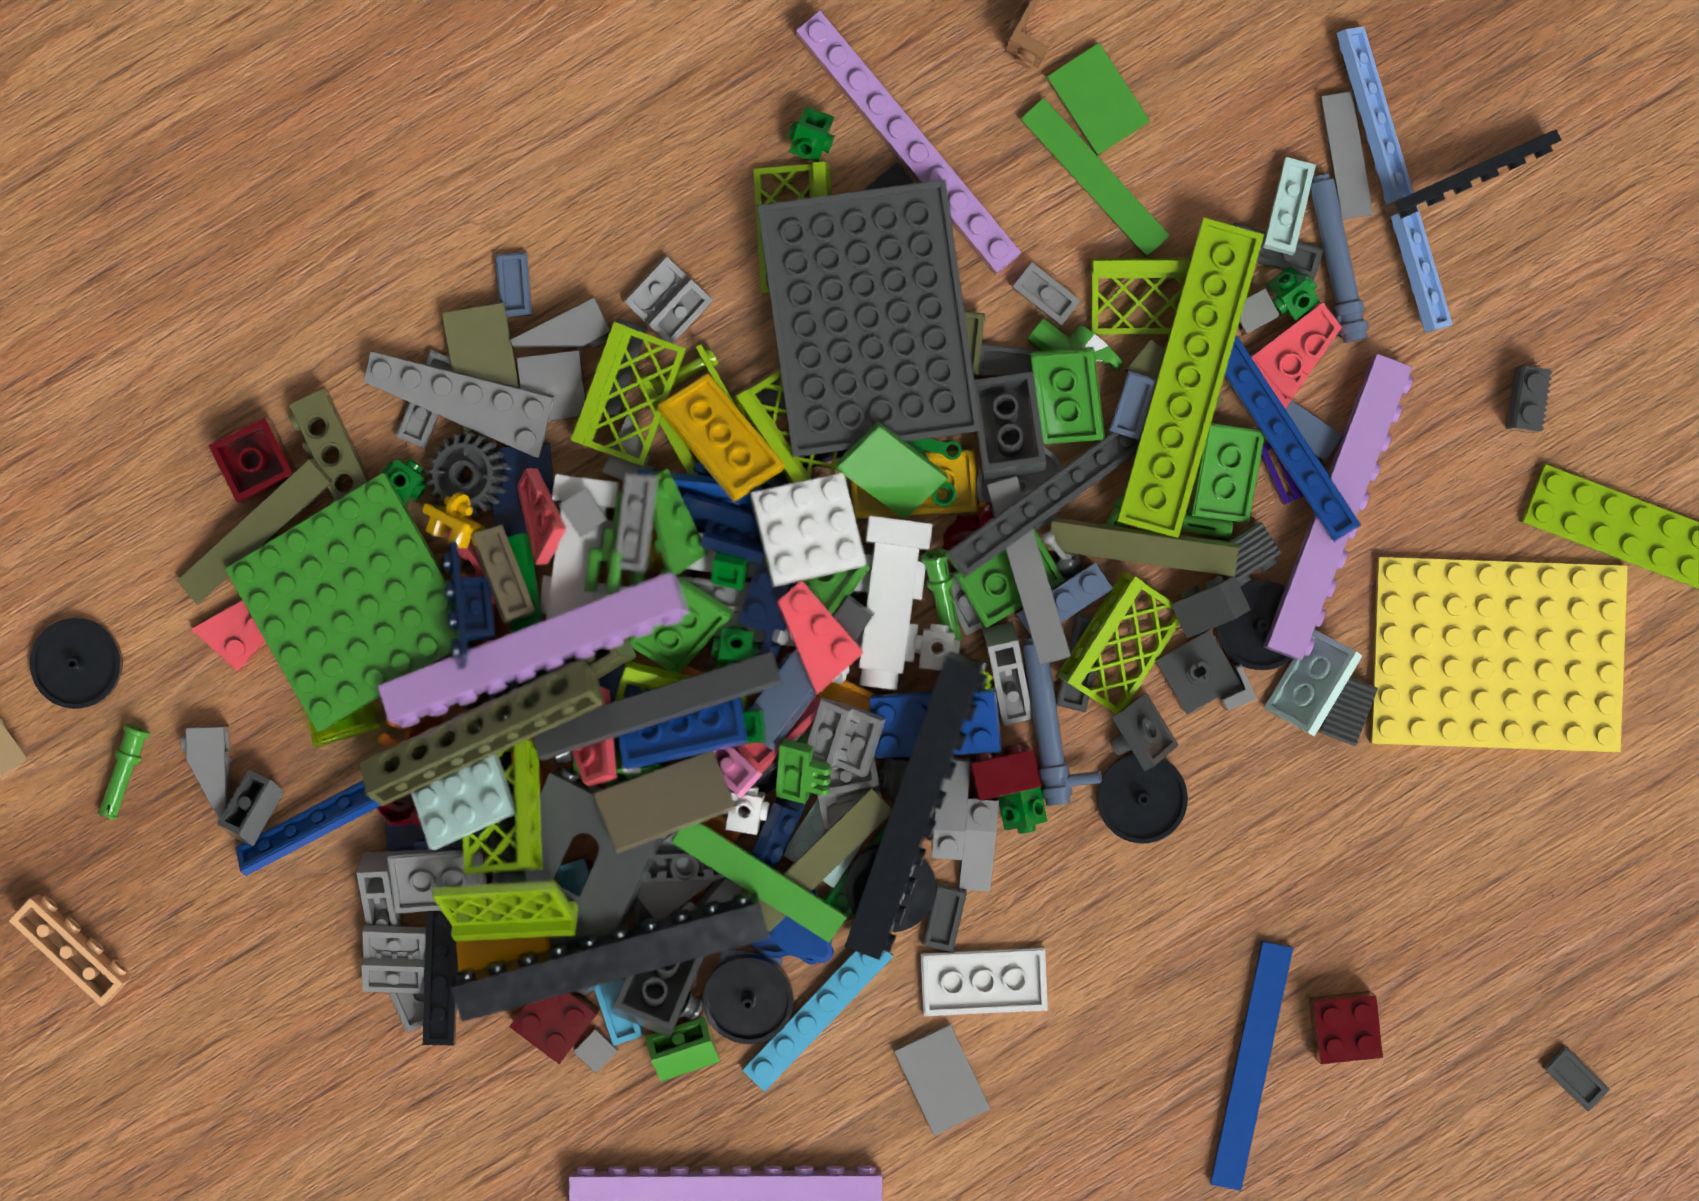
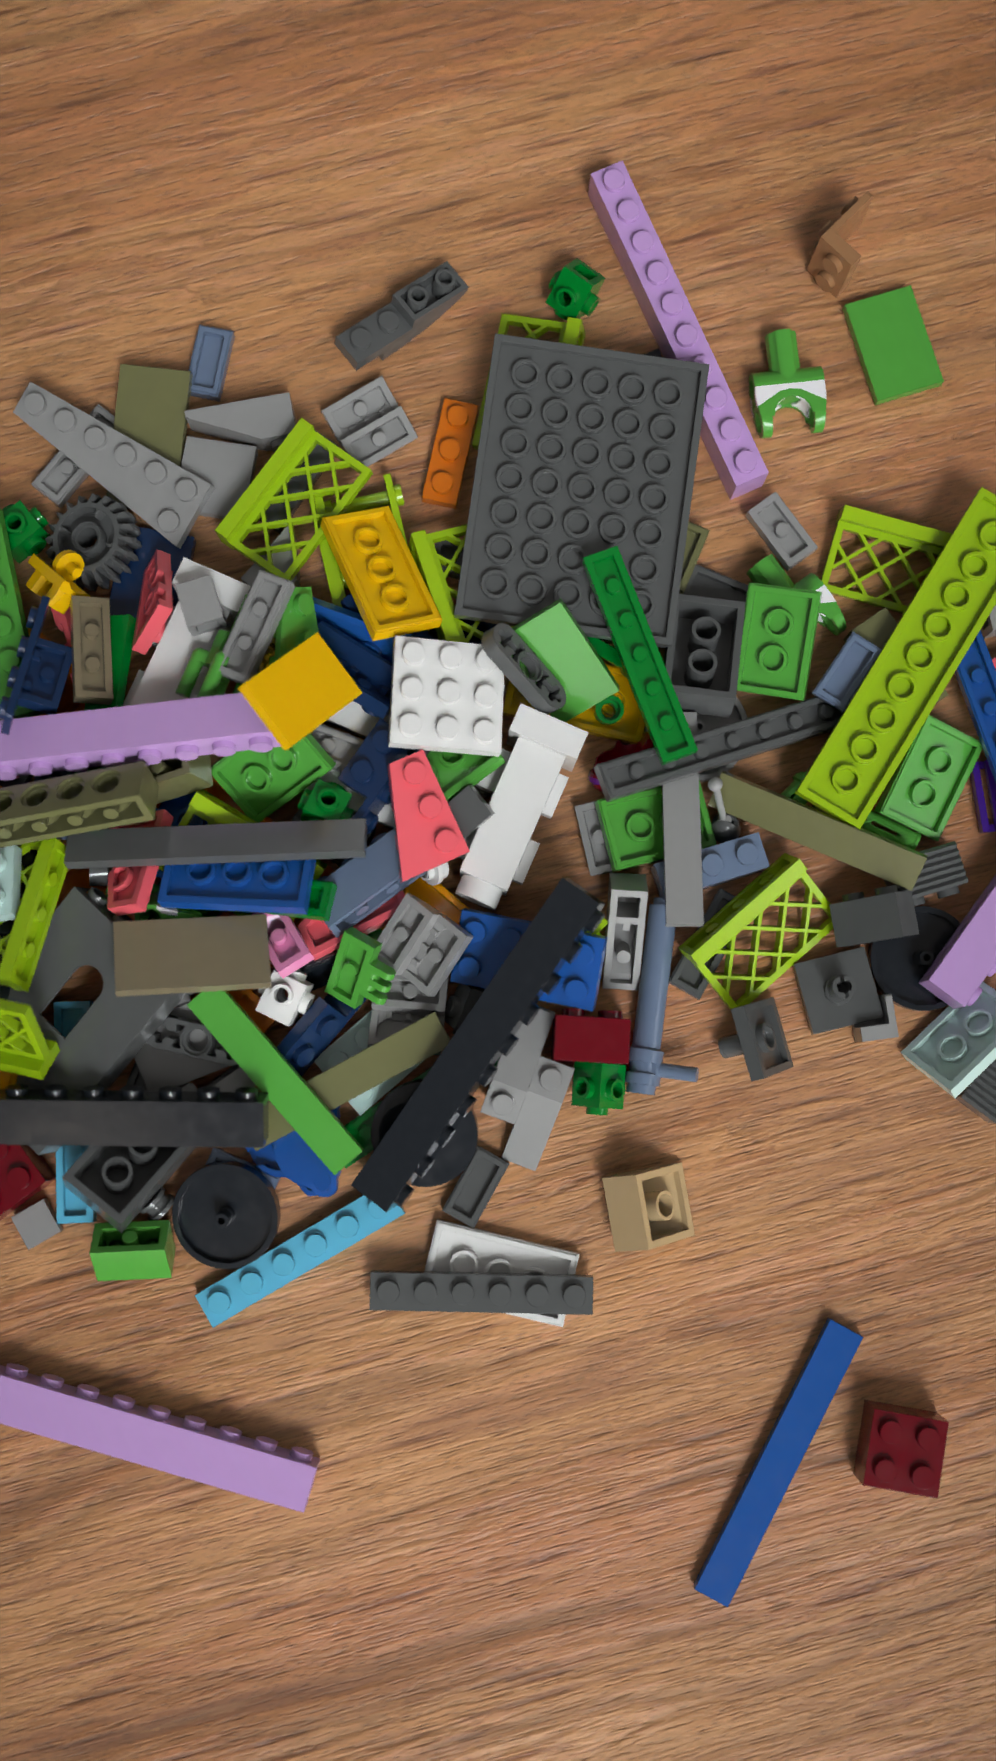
camera: 10 degrees right, 5 degrees down
(669, 199) = (404, 318): none -> dark grey slope
(692, 566) = (300, 691): none -> yellow tile
(729, 571) = (347, 722): green tile -> none
(744, 305) = (450, 453): none -> orange plate
(883, 497) = (547, 693): none -> dark grey beam
(937, 633) = (559, 859): white brick -> none
(940, 583) = (578, 806): bright green pin -> none
(942, 1079) = (419, 1373): light grey tile -> none
(956, 449) = (639, 655): none -> green plate
(974, 1001) = (481, 1292): none -> dark grey plate
(1016, 163) = (786, 386): none -> bright green connector
(1090, 894) = (648, 1207): none -> tan slope
(1094, 177) = (867, 425): bright green tile -> none
(1142, 803) = (734, 1118): black piece -> none

